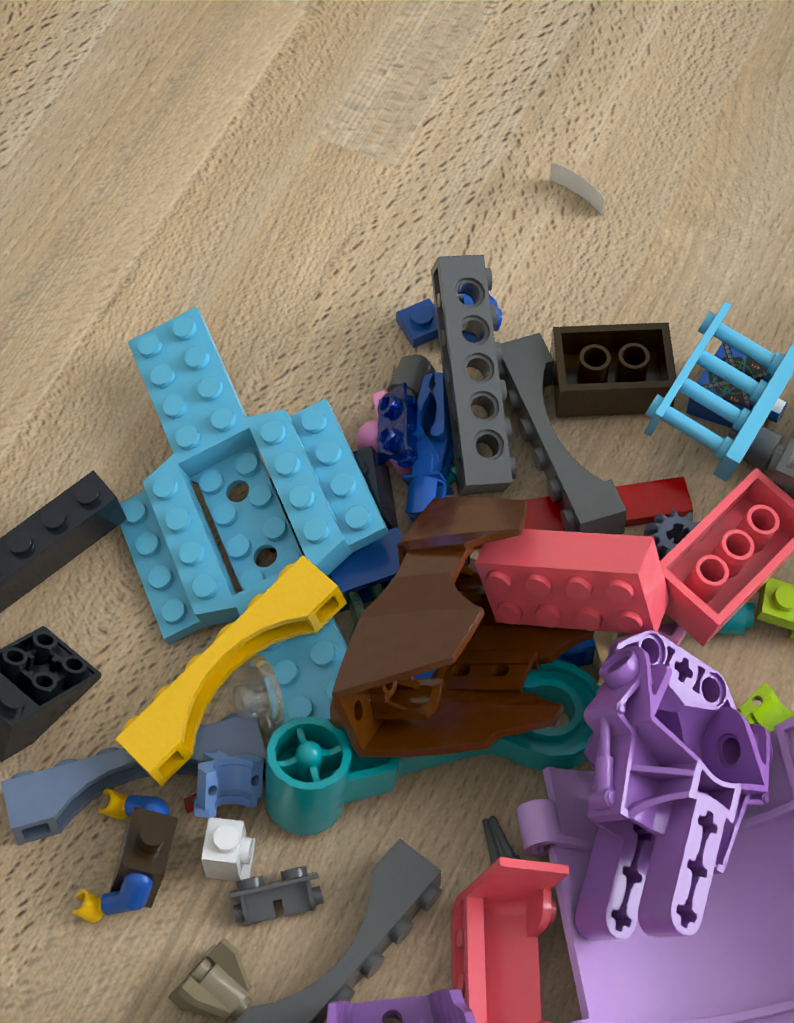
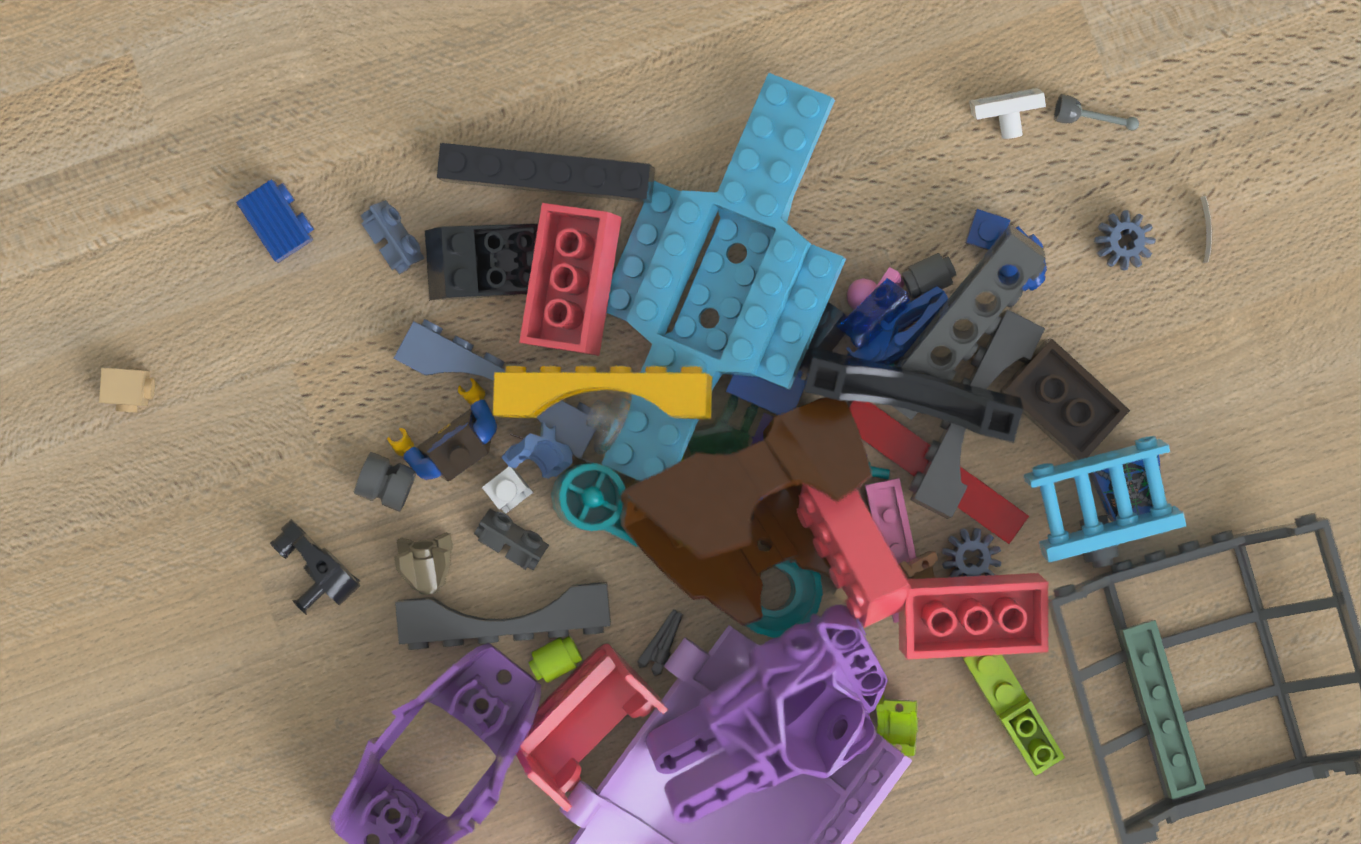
camera: 40 degrees right, 30 degrees up
(105, 948) = (385, 481): none -> dark grey wheel
(111, 625) = (570, 279): none -> coral brick
(344, 231) = (1008, 109): none -> white tile
(391, 199) = (1070, 110): none -> hinge
(422, 956) = (555, 659): none -> lime brick
(452, 465) = (868, 381): none -> black arch
(529, 239) = (1136, 244): none -> sand blue gear

